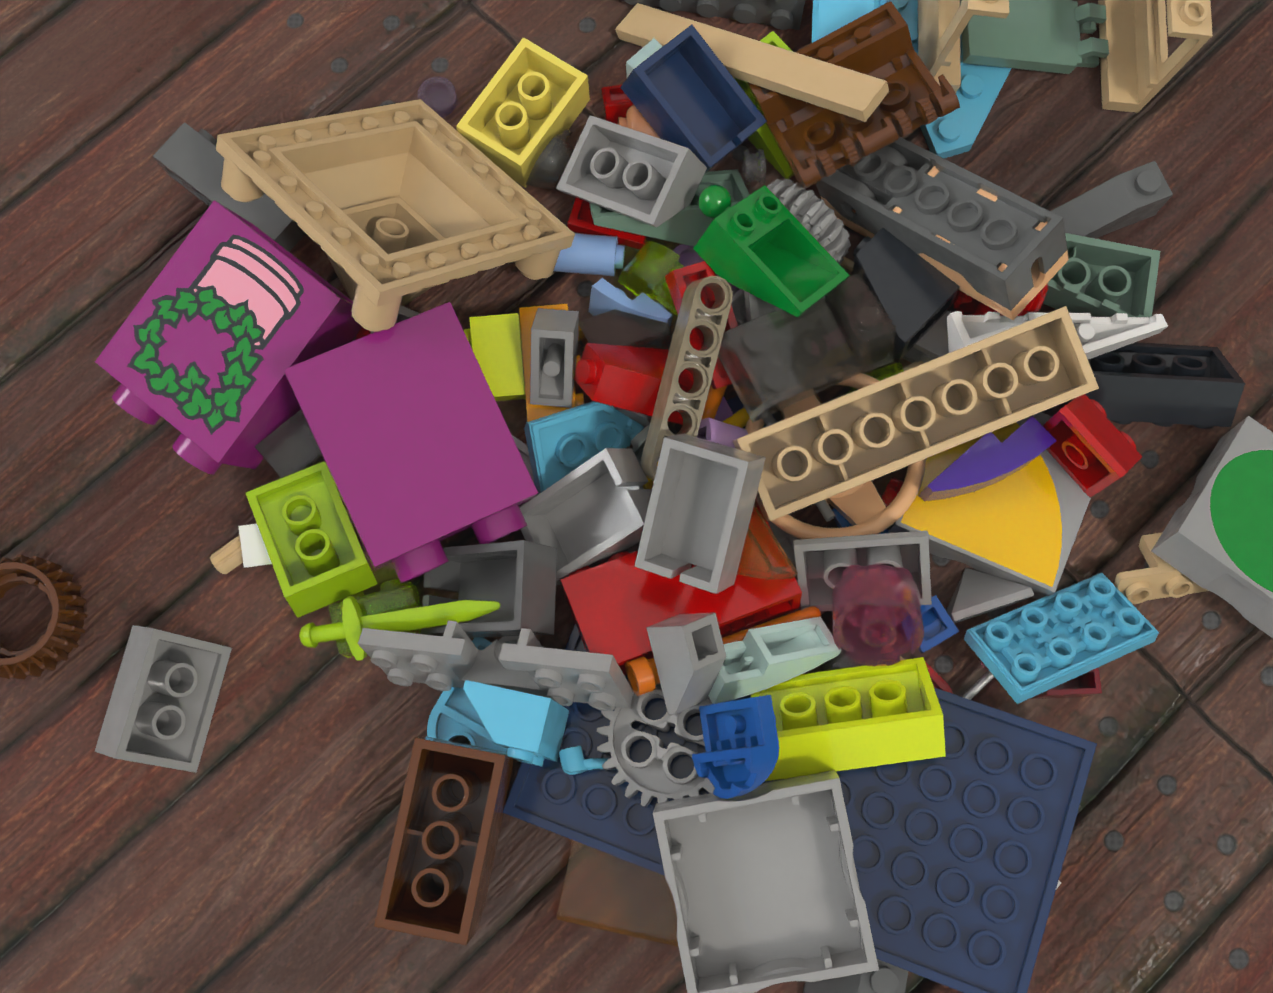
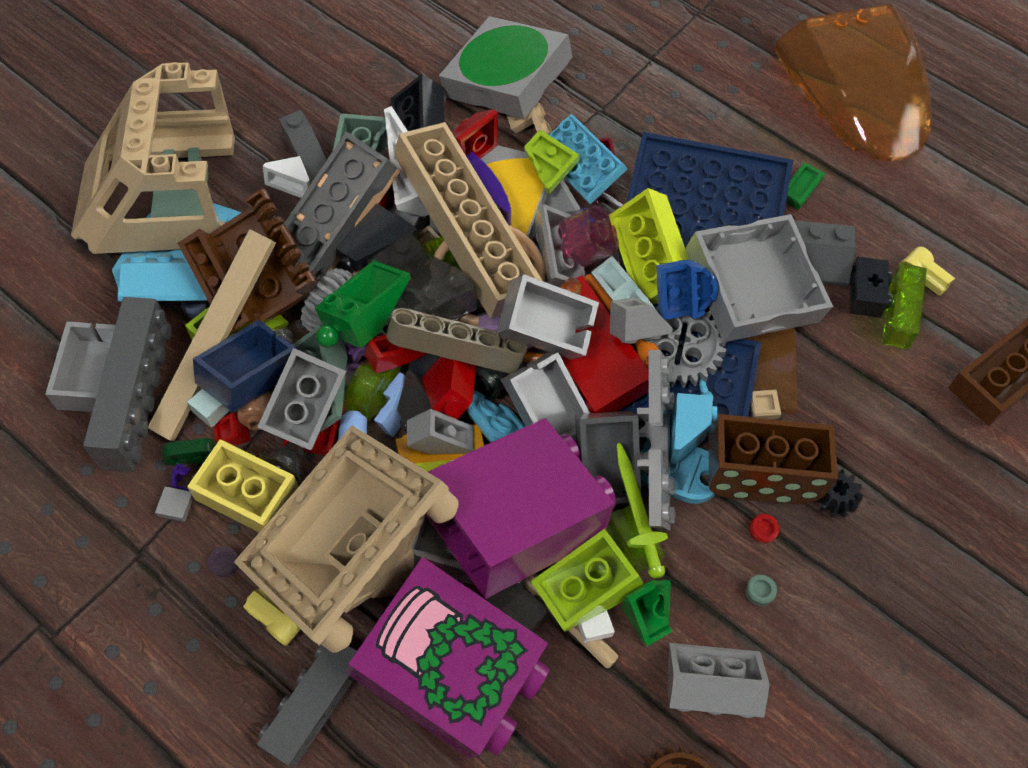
camera: 100 degrees left, 15 degrees down
(272, 628) = (649, 610): none -> green slope
(280, 793) = (761, 590): none -> sand green tile
(373, 819) = (764, 528): none -> red tile
(393, 958) = (847, 501): none -> black gear
(523, 27) = (174, 504): none -> light grey tile
(562, 39) = (179, 469): none -> dark purple piece
(567, 864) = (765, 404): none -> tan tile
(593, 51) = (187, 451): none -> dark green beam
(1047, 576) = (550, 159): none -> lime wing
(1055, 178) = (287, 175): none -> white slope

